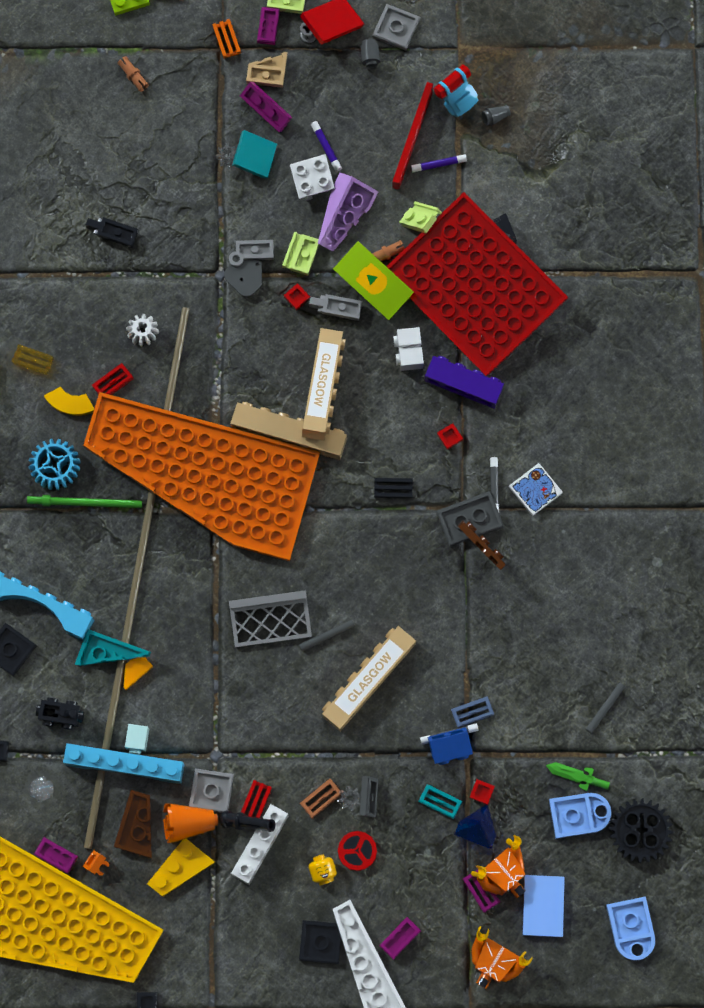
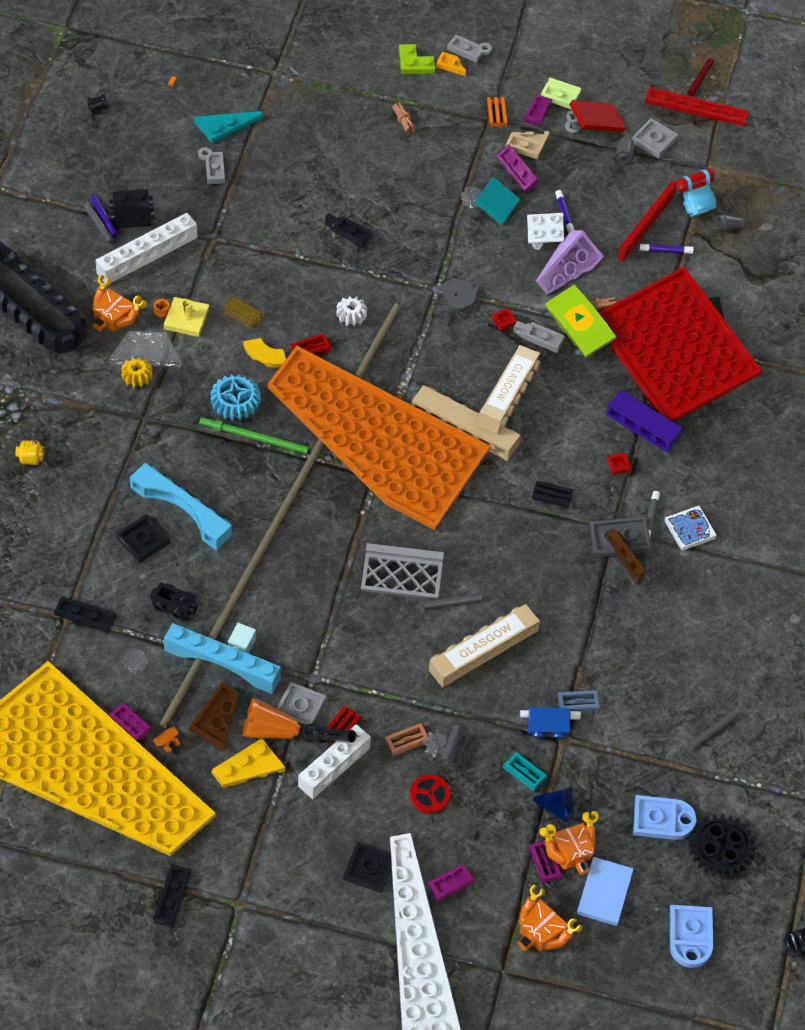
camera: 10 degrees right, 20 degrees down
(102, 649) = (233, 557): teal wing -> none
(135, 670) = (259, 584): light orange tile -> none
(252, 251) = (473, 273): light grey hinge -> none
(301, 253) = (517, 287): yellowish green plate -> none
(322, 869) = (390, 800): yellow head -> none
(409, 348) = (599, 384): white piece -> none
(420, 217) = (638, 282): yellowish green plate -> none
(481, 792) = (569, 772): red plate -> none
(577, 775) = (670, 783): bright green sword -> none

